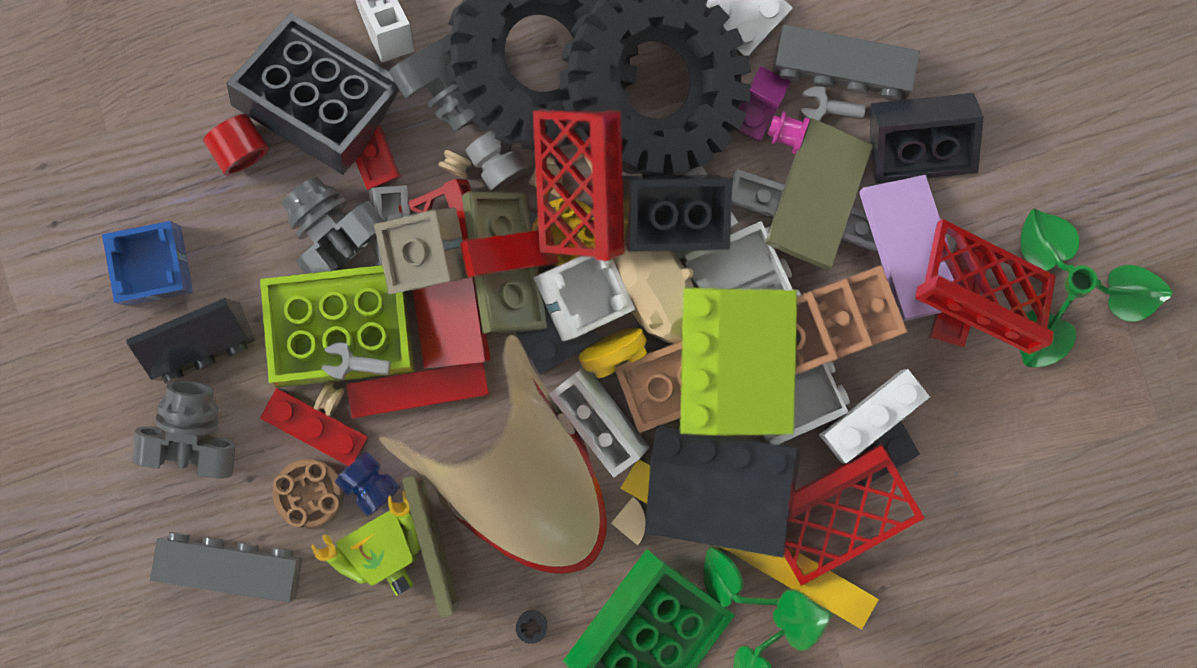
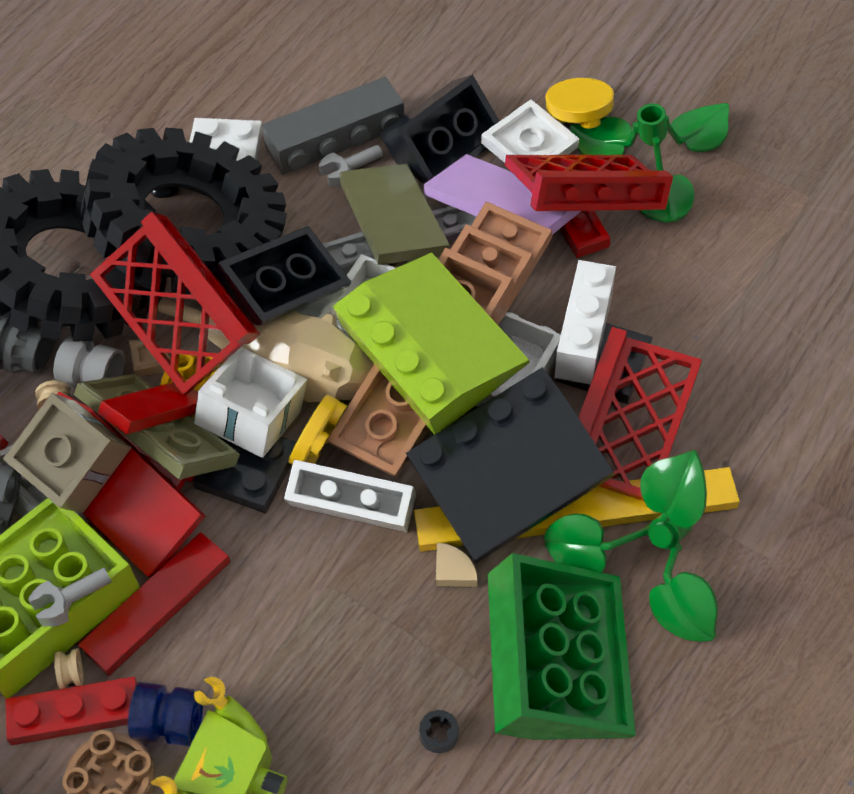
camera: 35 degrees left, 30 degrees down
(431, 544) = (277, 714): olive tile -> none
(533, 489) = (295, 587): tan piece -> none
(765, 98) = (295, 191): magenta slope -> none
(788, 131) = (329, 194): dark pink brick -> none
(987, 199) = (529, 132): none -> white plate
(1057, 195) = (580, 101): none -> yellow tile

